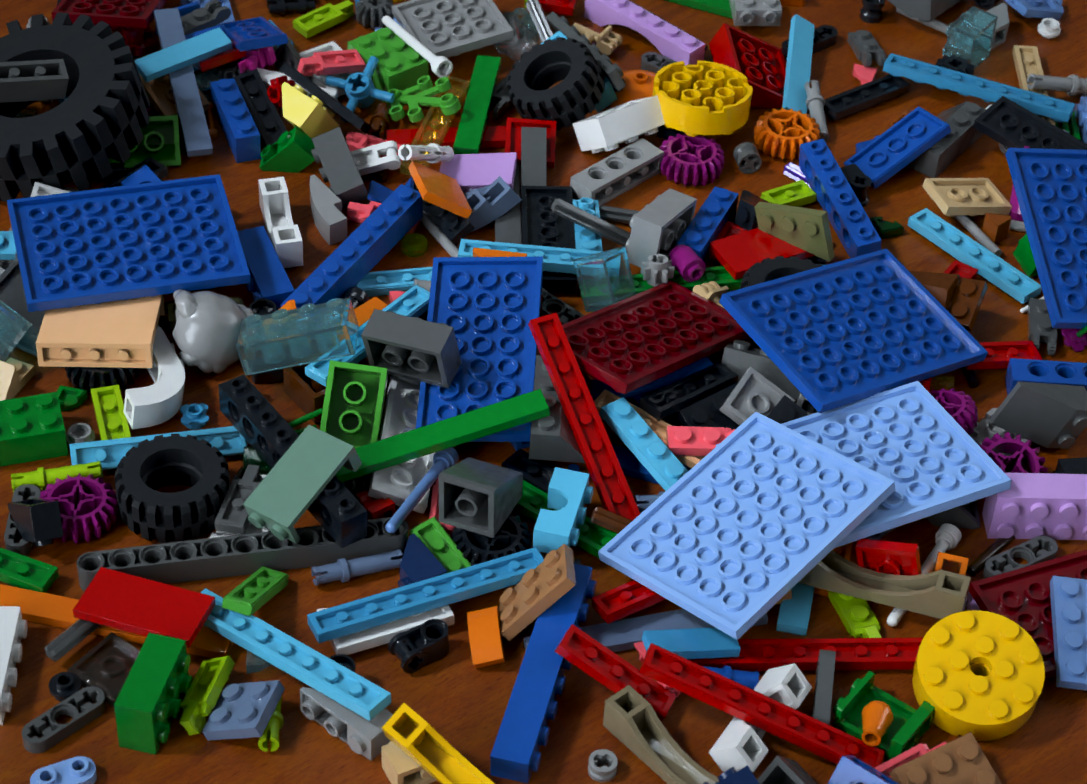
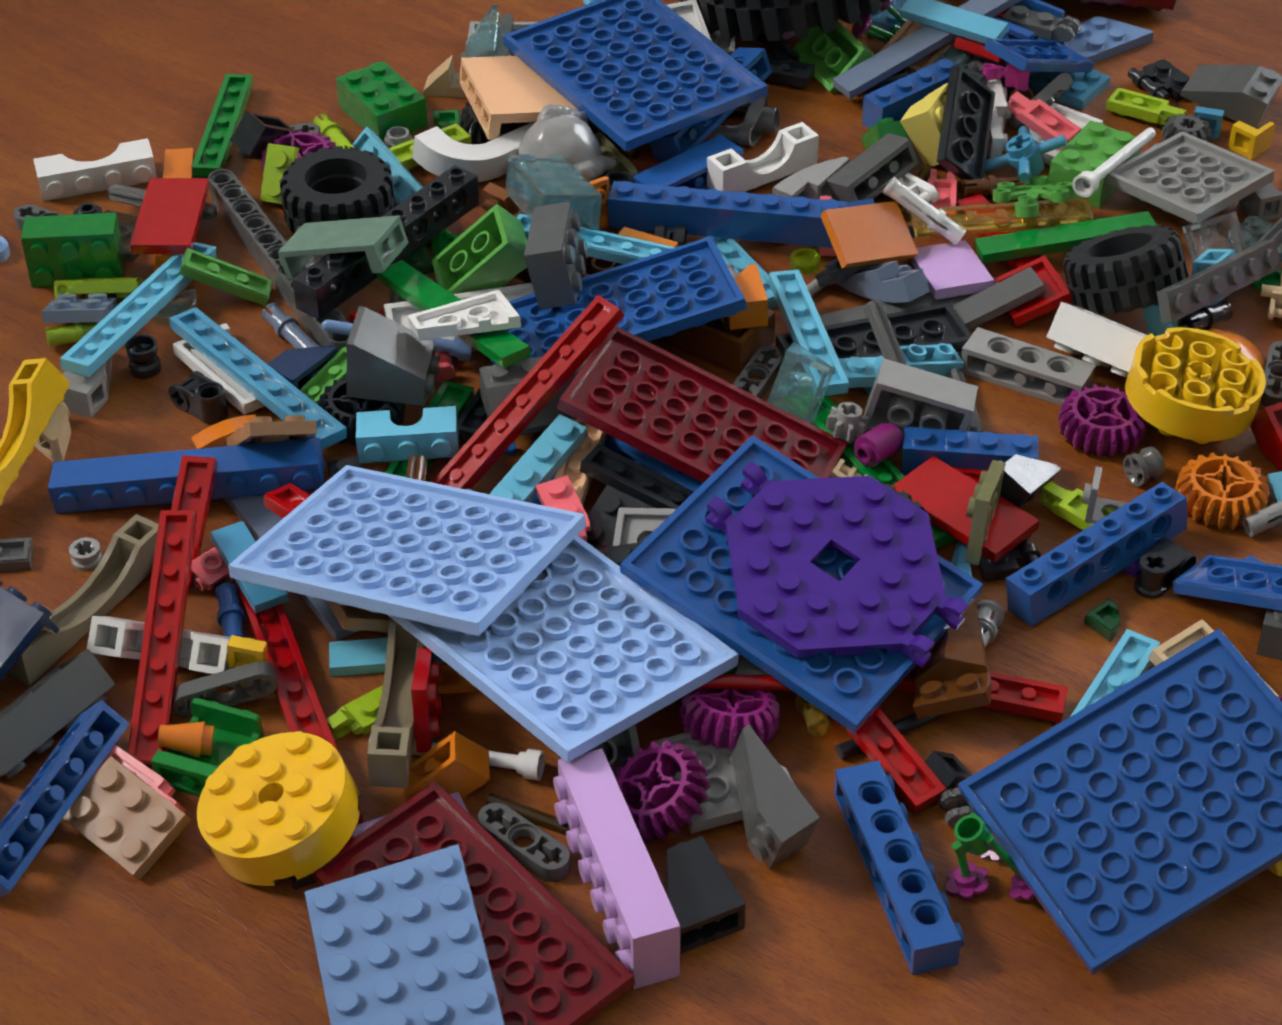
camera: 75 degrees right, 0 degrees up
(108, 520) = (277, 160): none -> lime plate
(480, 415) = (468, 316): none -> white wing
(792, 181) = (1095, 503): none -> light grey bracket
(807, 658) = (245, 651): none -> yellow plate
(892, 331) = (804, 609): none -> dark purple plate
(1018, 334) = (947, 768): none -> black plate

